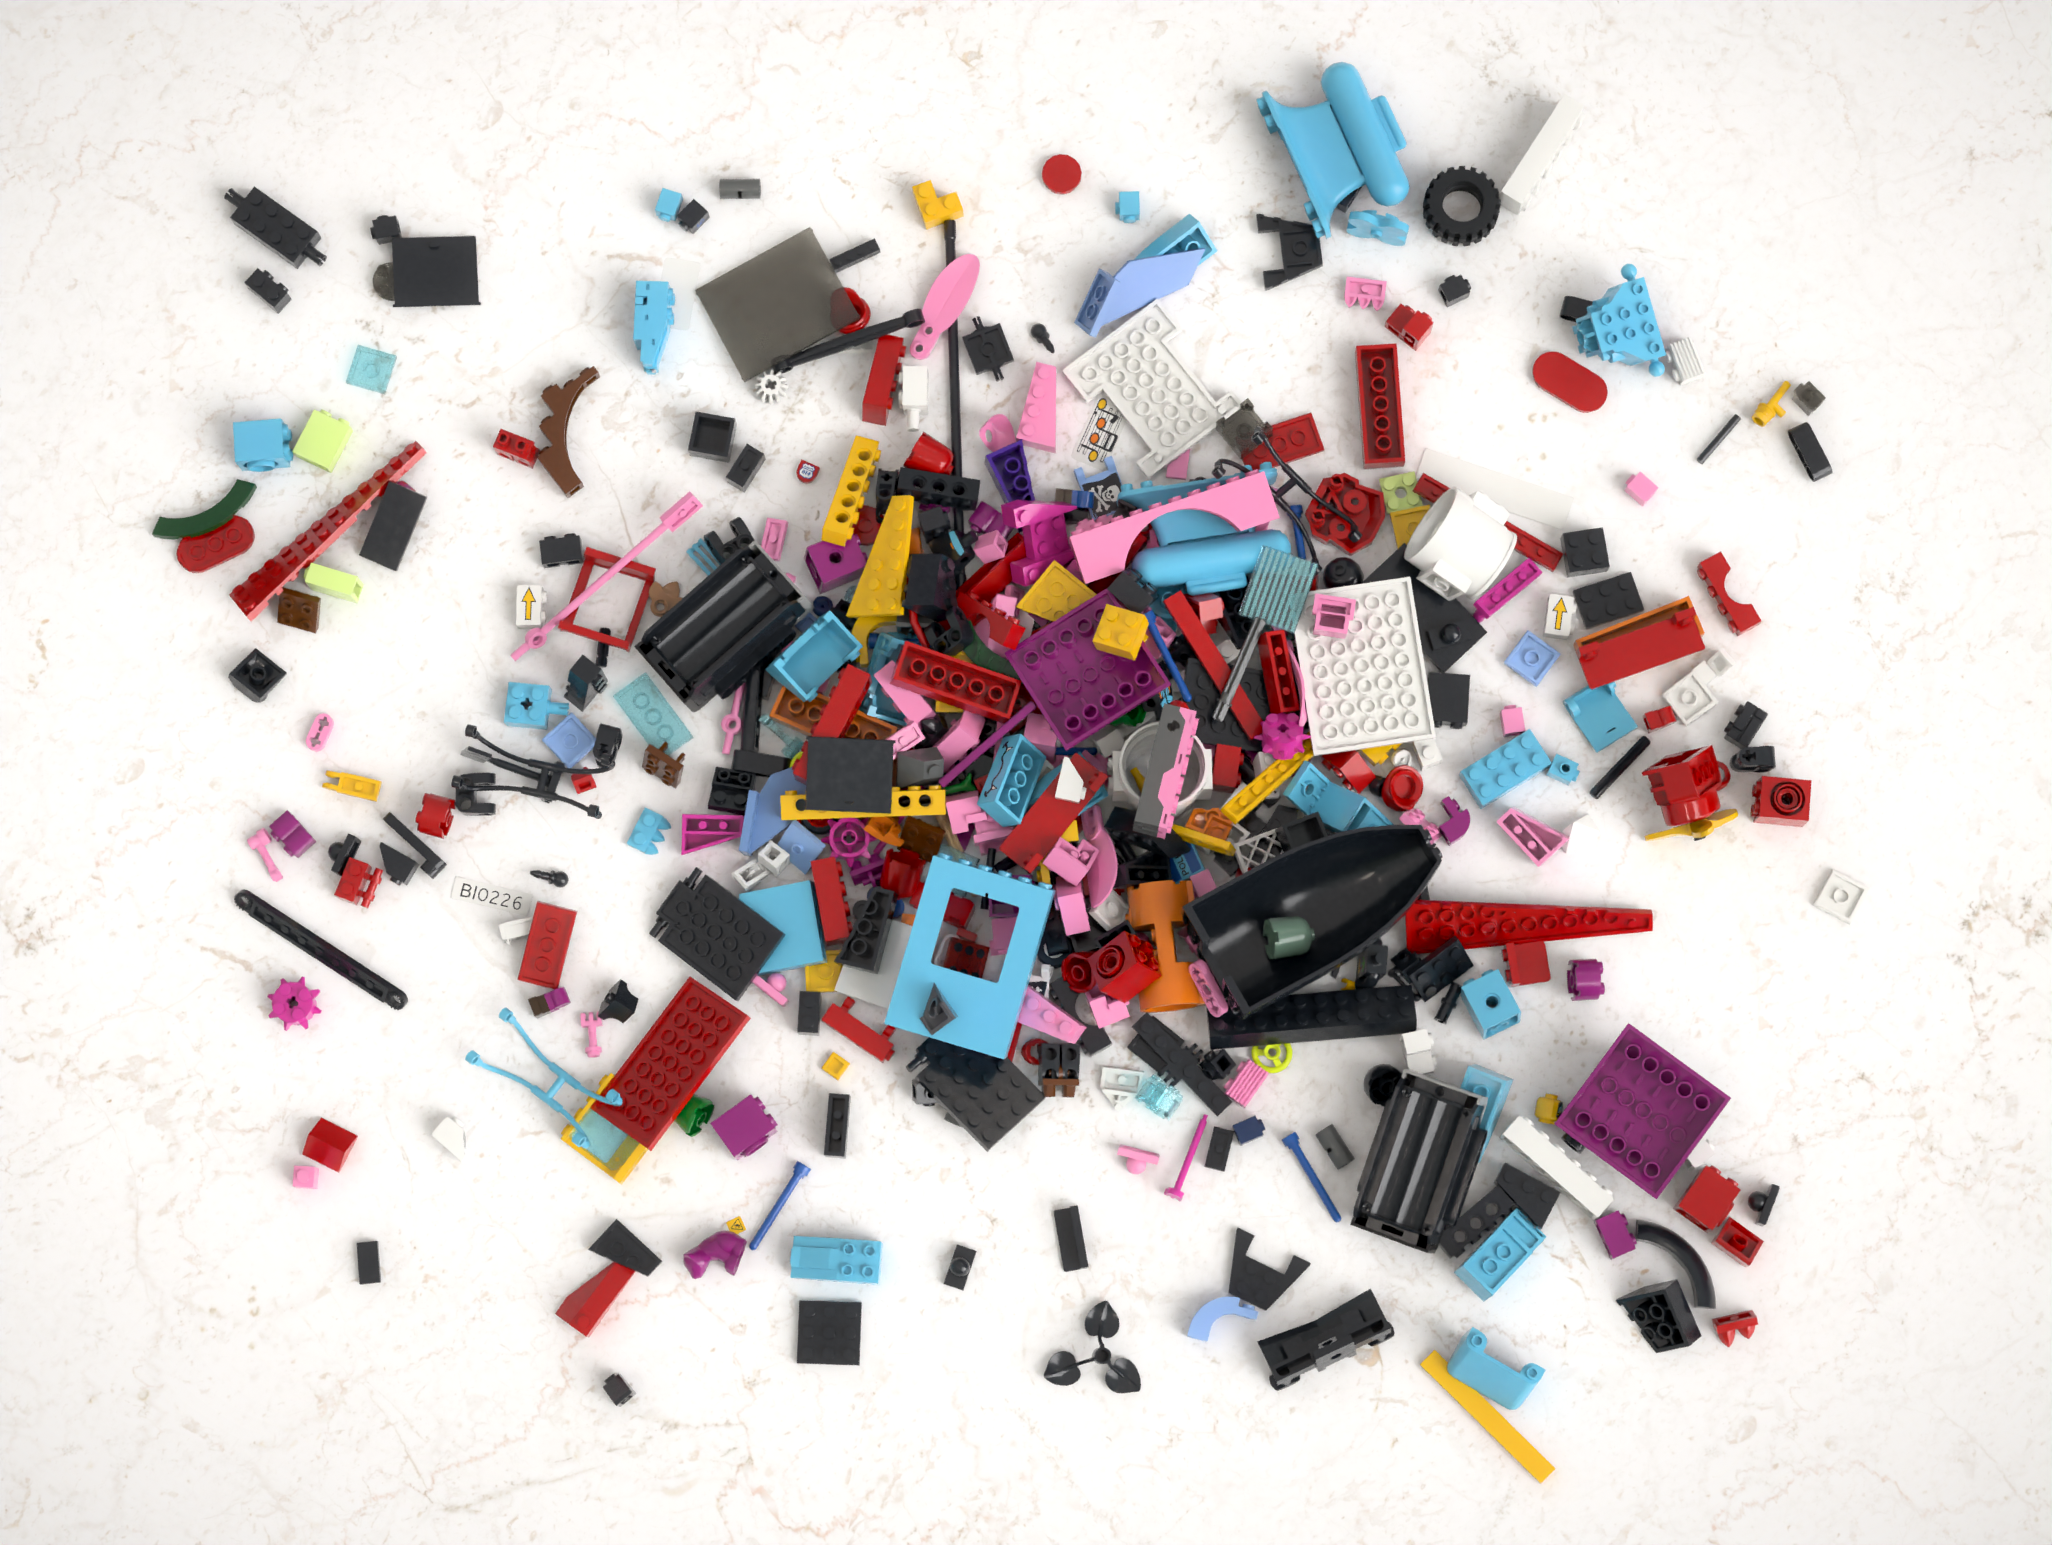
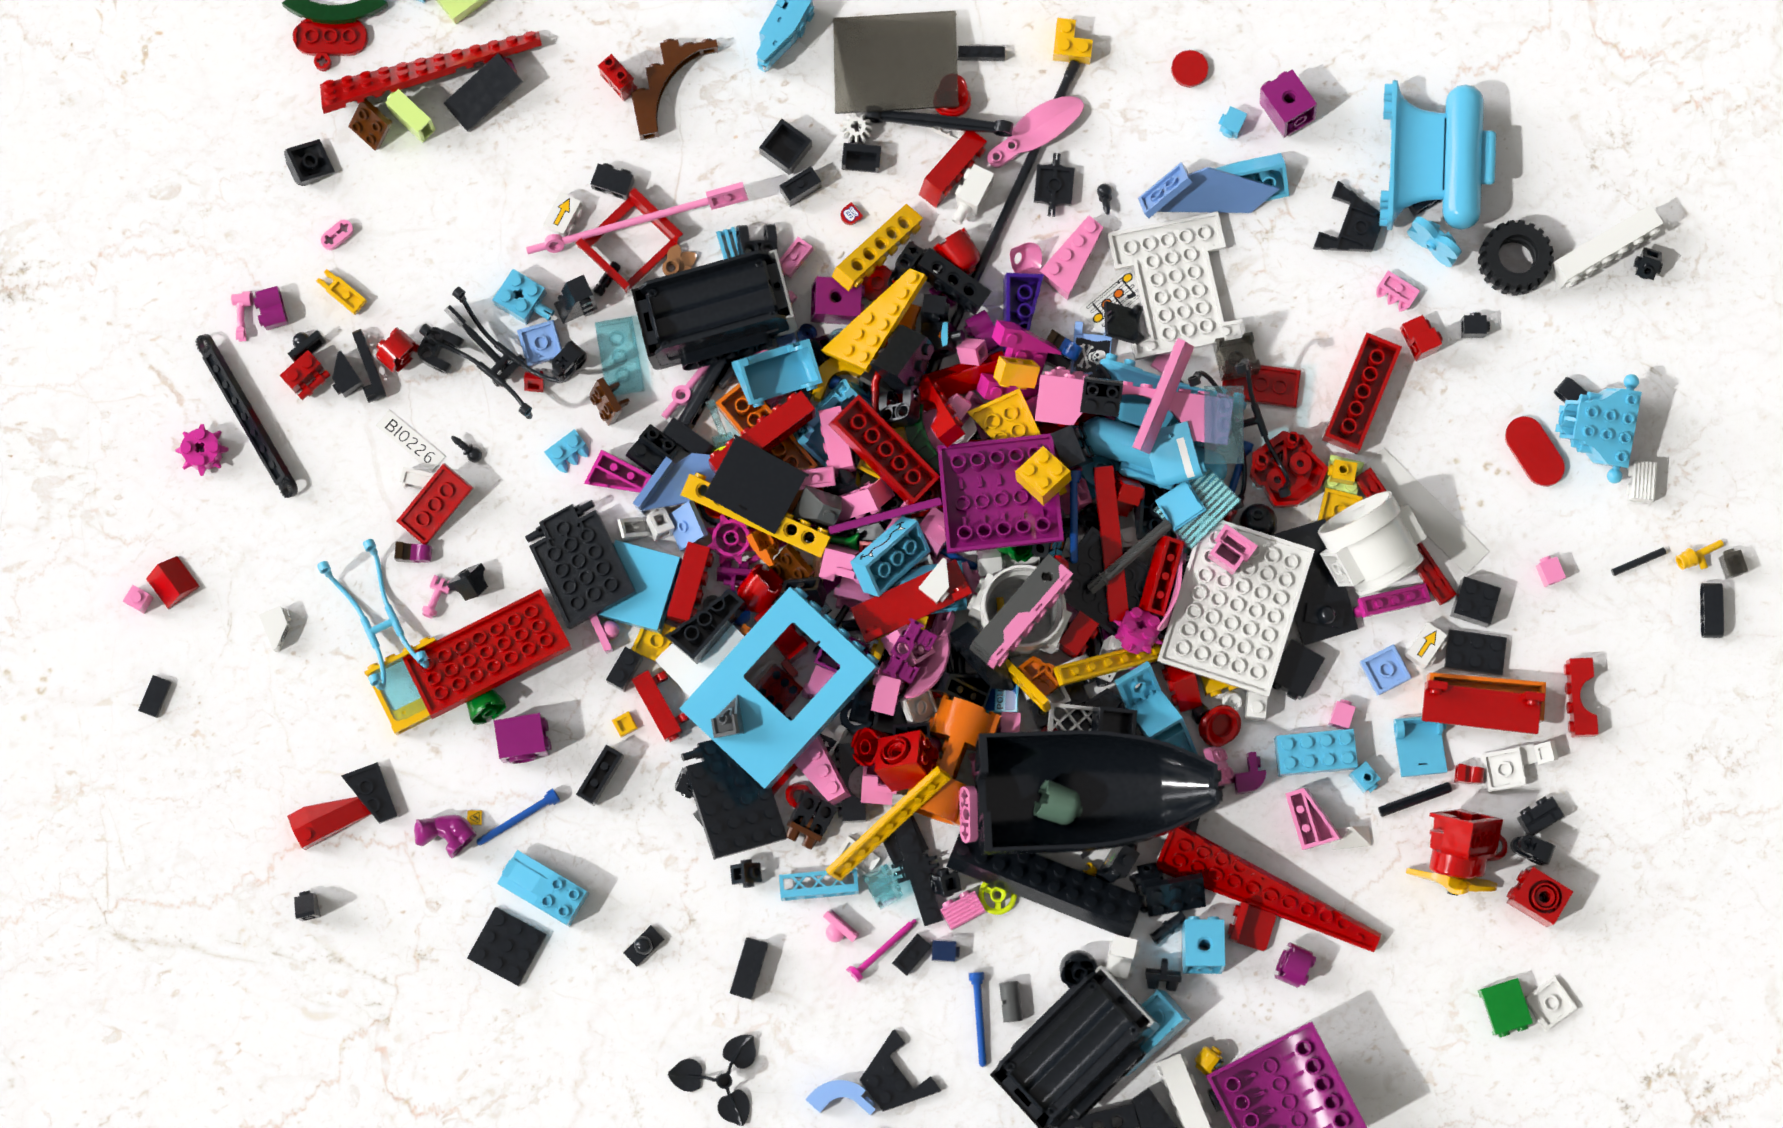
camera: 20 degrees right, 0 degrees up
(226, 575) = (326, 66): none -> red bush
(790, 412) = (861, 157): none -> black panel
(950, 845) = (811, 586): none -> black brick
(1023, 1150) = (746, 873): none -> black brick
(1044, 546) = (1016, 372): none -> yellow brick
(1075, 842) = (896, 664): none -> magenta piece
(1101, 1133) = (816, 892): none -> medium azure fence
(1120, 449) = (1123, 322): none -> black piece
(1137, 1034) = (888, 823): none -> yellow tile
(1138, 529) = (1101, 396): none -> black brick
(1172, 162) = (1287, 103): none -> magenta brick
(1196, 501) = (1163, 396): none -> bright pink arch
(1233, 552) = (1175, 456): none -> medium azure door
(1263, 596) = (1180, 505): none -> medium azure piece
(1267, 500) = (1223, 425): none -> clear light blue tile
(1399, 490) = (1342, 472): none -> yellow brick
(1473, 1048) = (1163, 974): none -> black hips
(1589, 151) = (1648, 263): none -> black brick
(1802, 921) = (1506, 1007): none -> green panel

